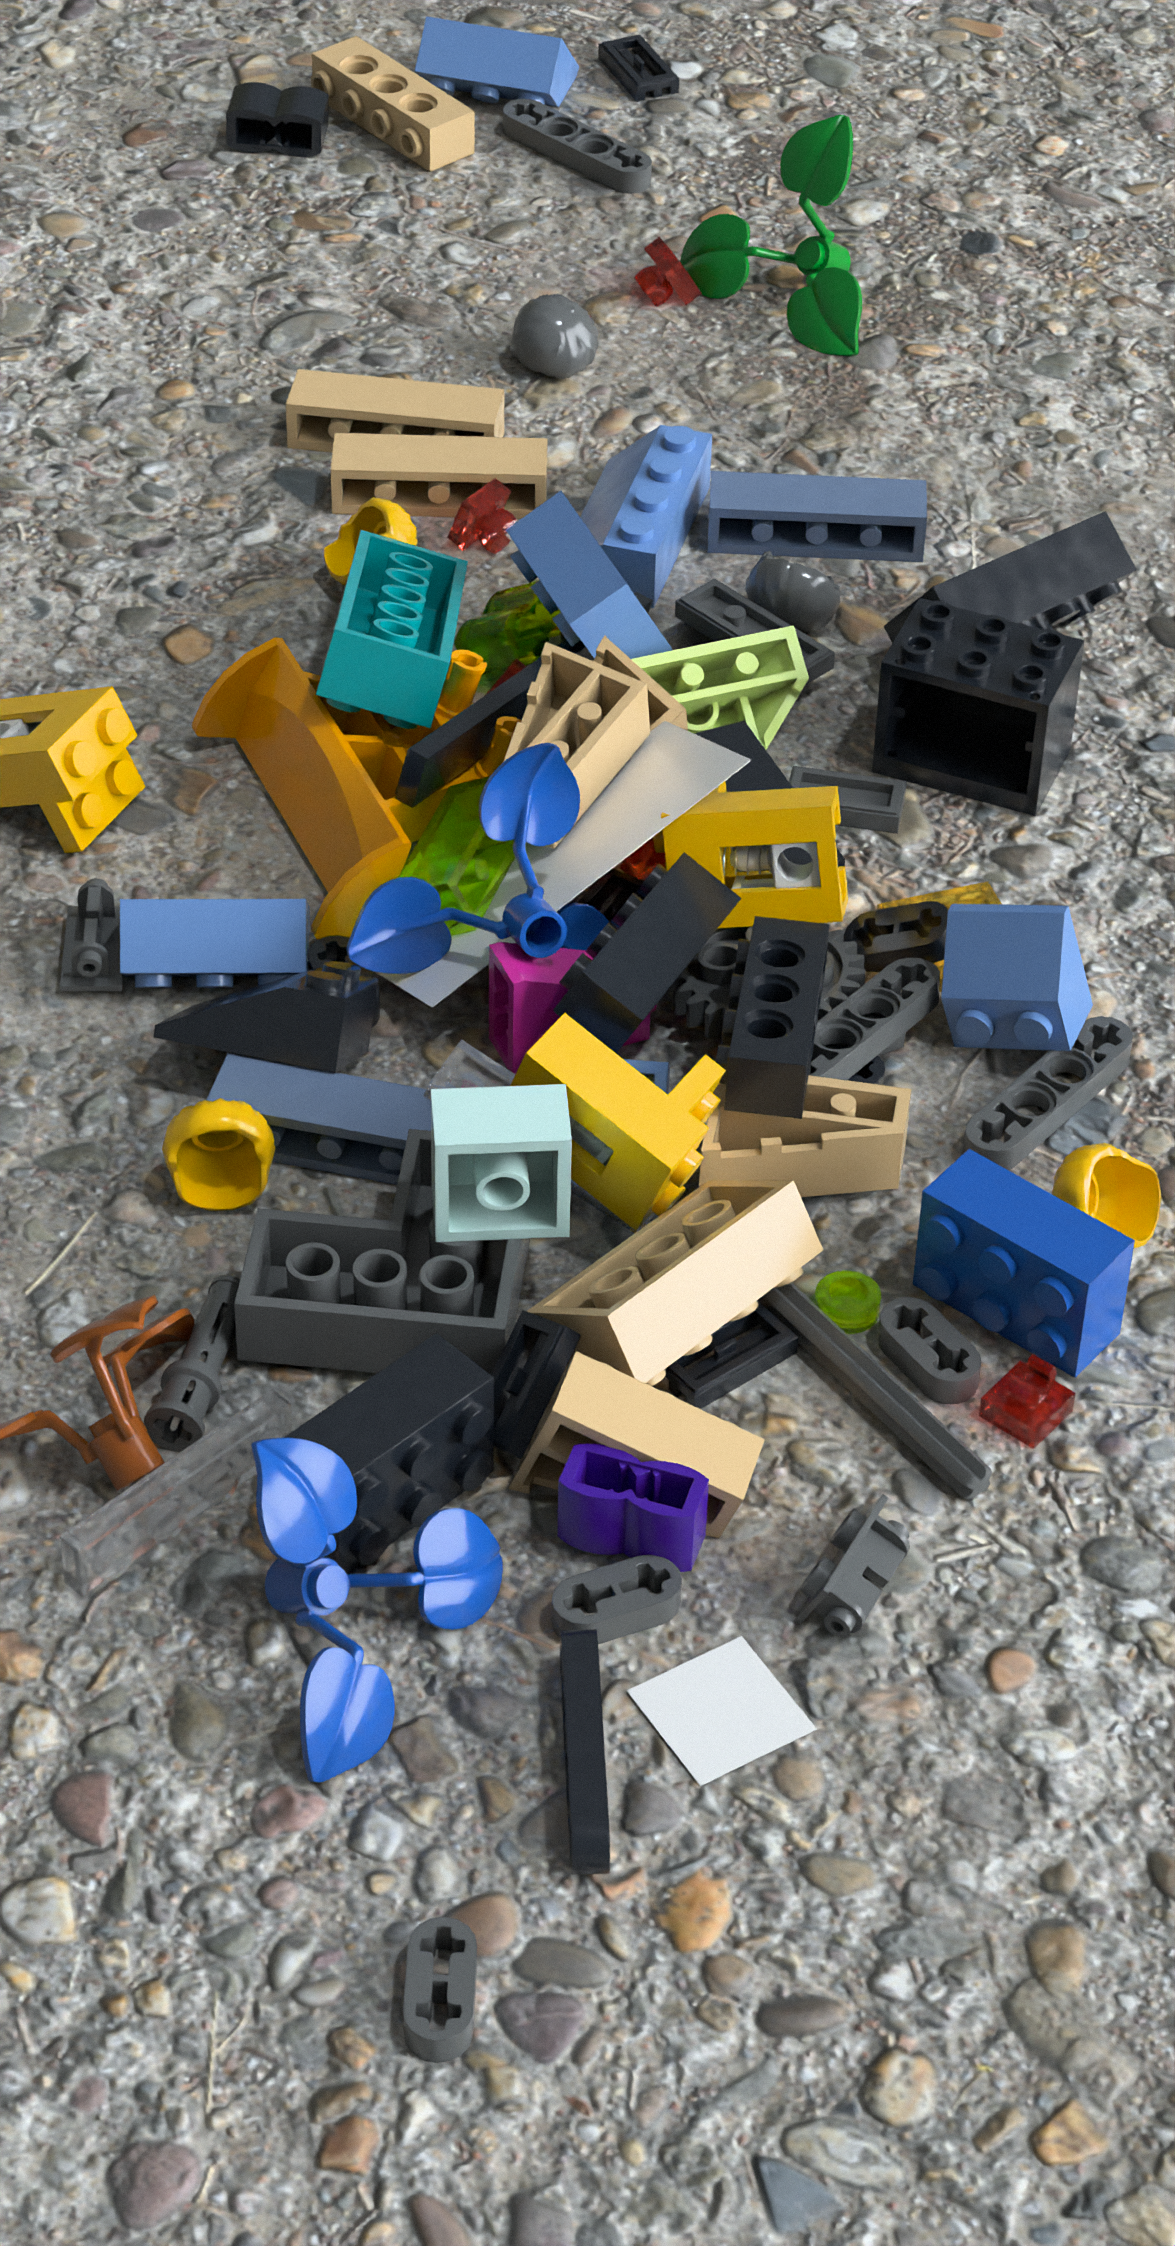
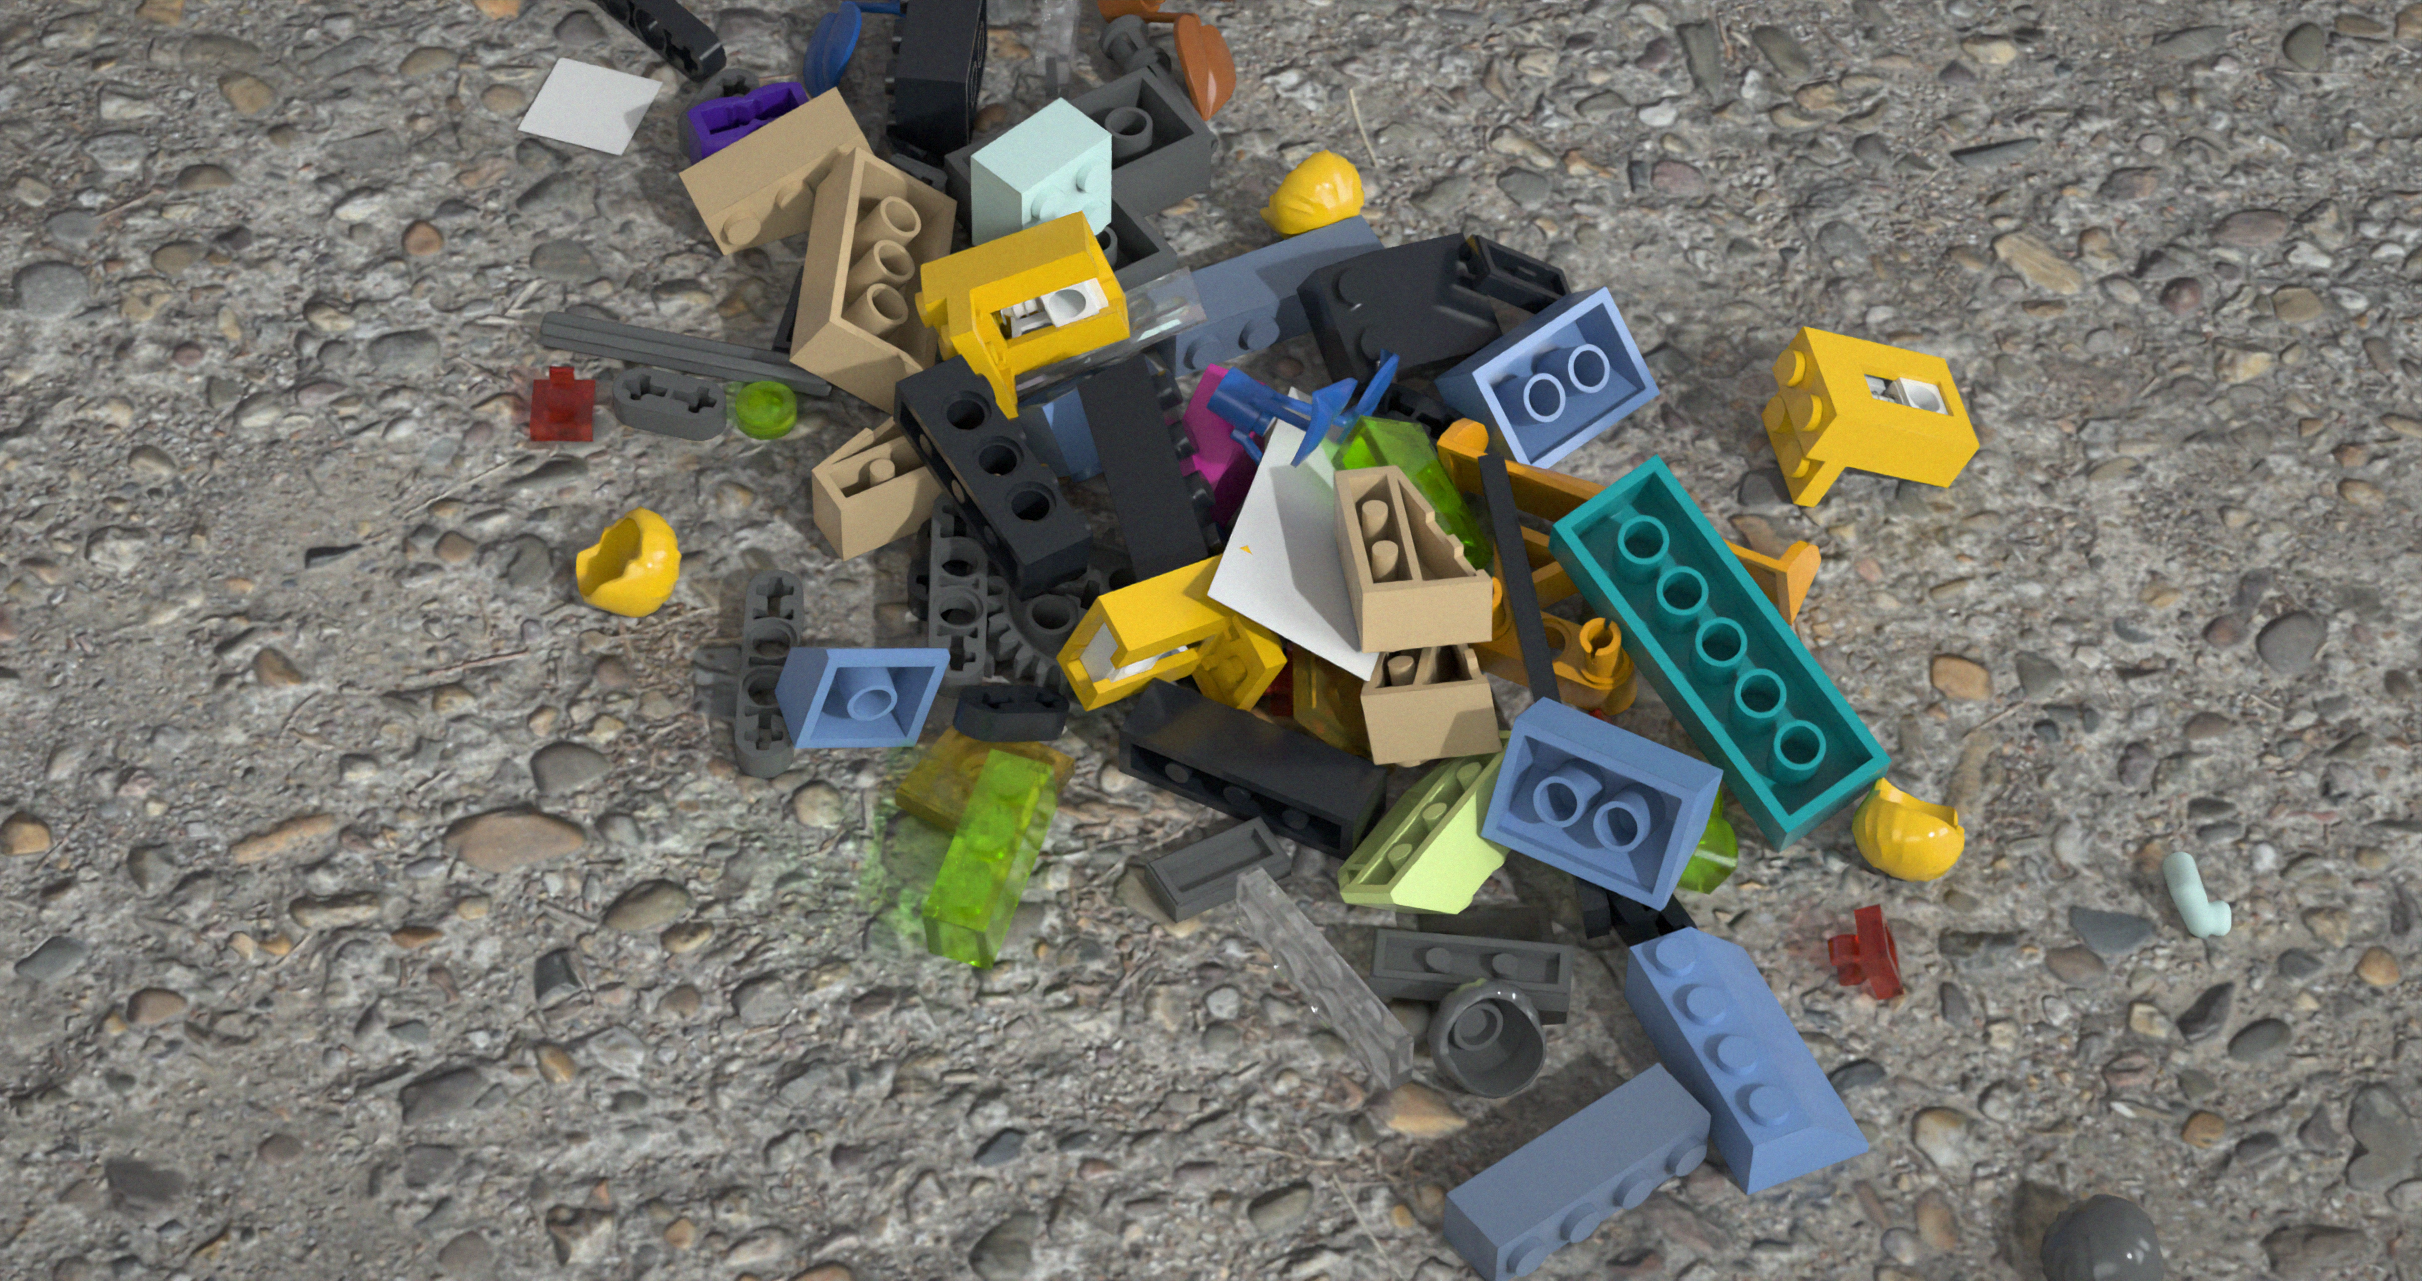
camera: 140 degrees right, 5 degrees up
(92, 941) = (1657, 341): dark grey hinge -> none
(141, 1001) = (1513, 275): none -> black tile
(243, 448) = (2189, 896): none -> light aqua arm
(351, 403) = (2105, 1027): tan brick -> none
(435, 472) = (1973, 980): tan brick -> none
(860, 677) = (1332, 987): none -> clear plate
(865, 1547) = (577, 221): dark grey hinge -> none
(977, 706) = (1159, 955): black container -> none
(1022, 1262) = (637, 446): blue brick -> none
(1023, 841) = (990, 859): none -> clear neon green brick
(1042, 581) = (1256, 1121): black brick -> none

